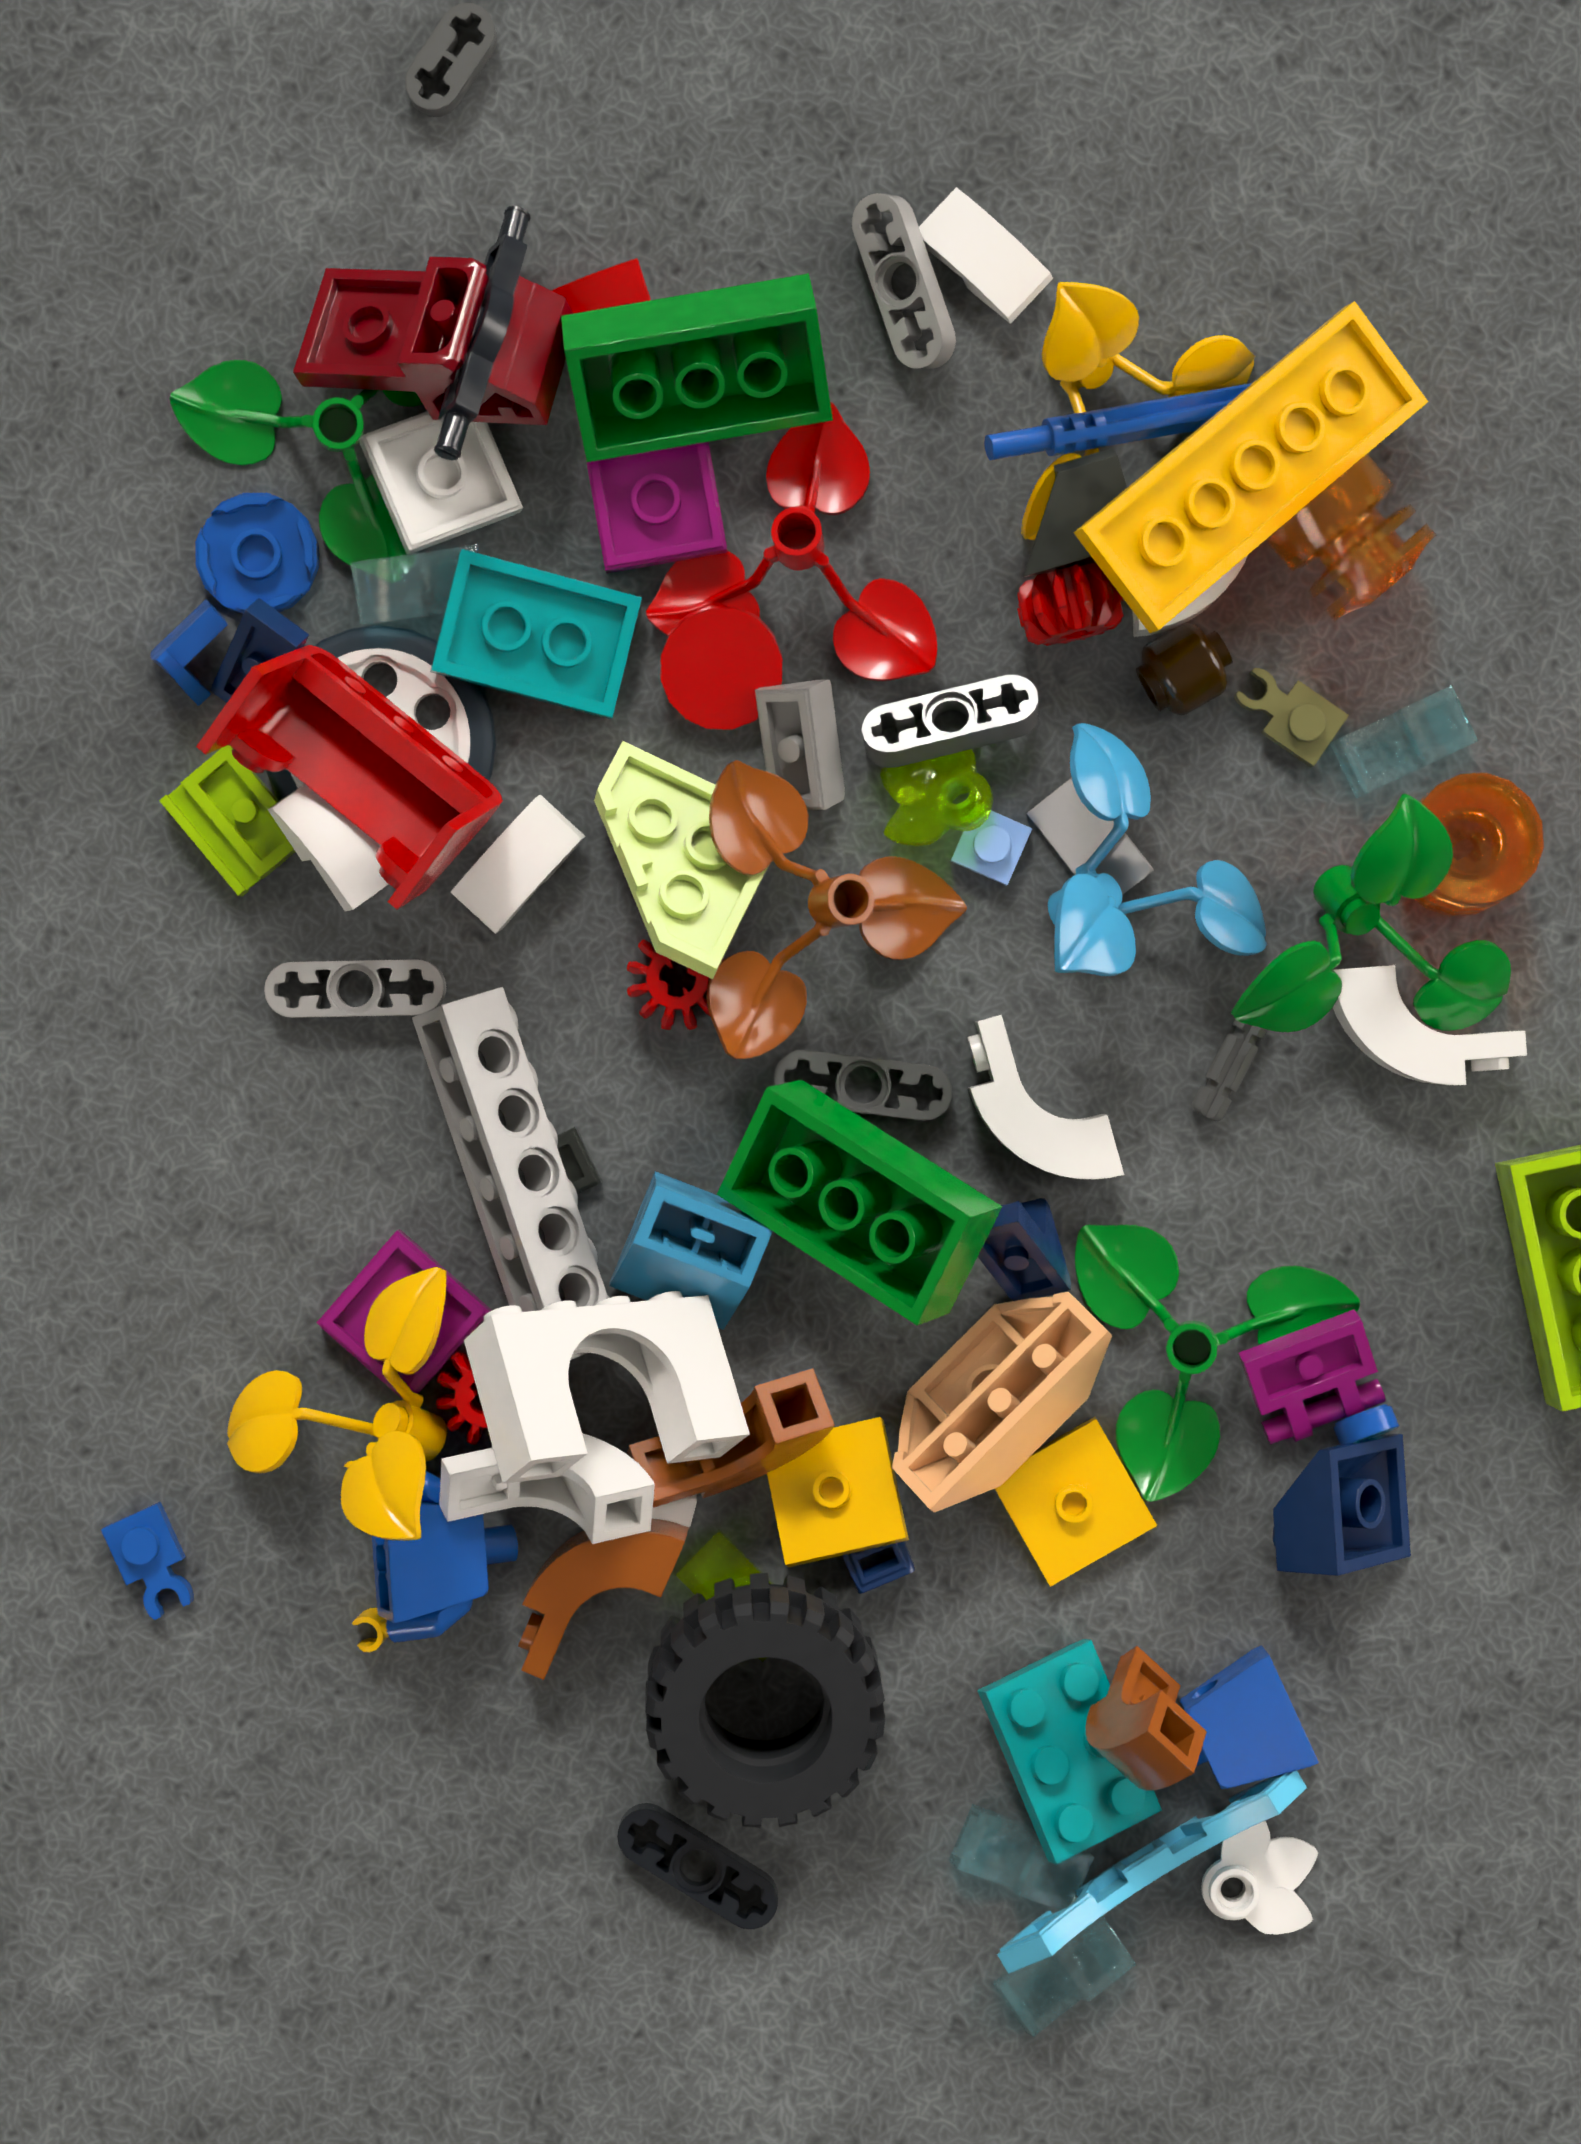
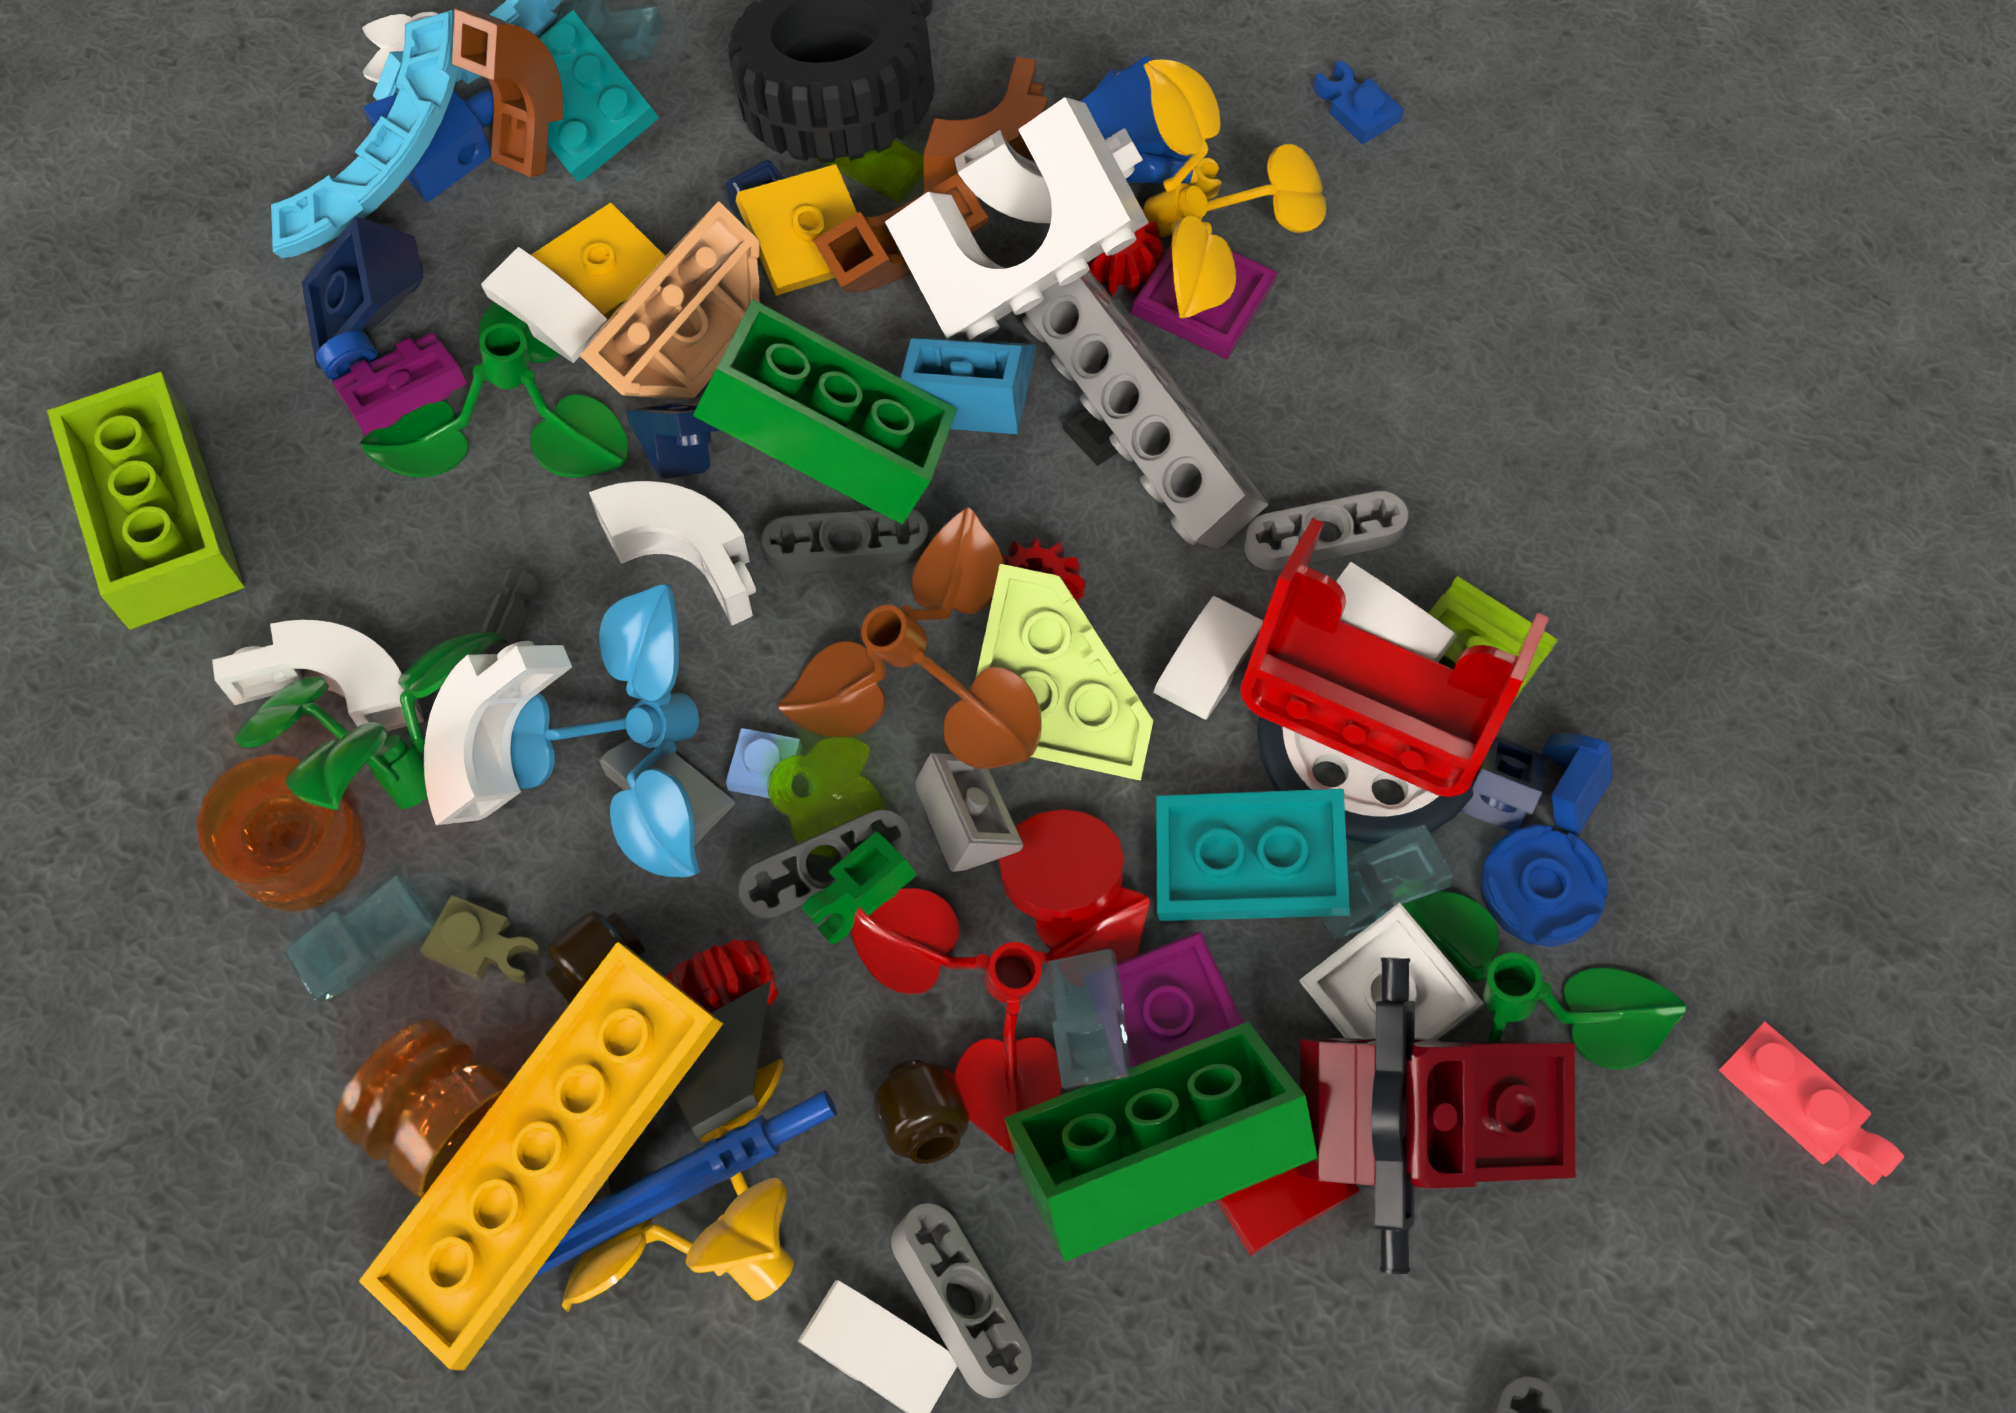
camera: 160 degrees right, 25 degrees down
(87, 294) = (1808, 1104): none -> coral plate
(732, 496) = (1090, 1019): none -> clear light blue slope
(905, 454) = (921, 1111): none -> dark brown head
(915, 676) = (862, 880): none -> green plate
(1141, 1440) = (545, 302): none -> white slope
(1275, 907) = (473, 724): none -> white arch
(1288, 1689) = (385, 154): none -> medium azure tile

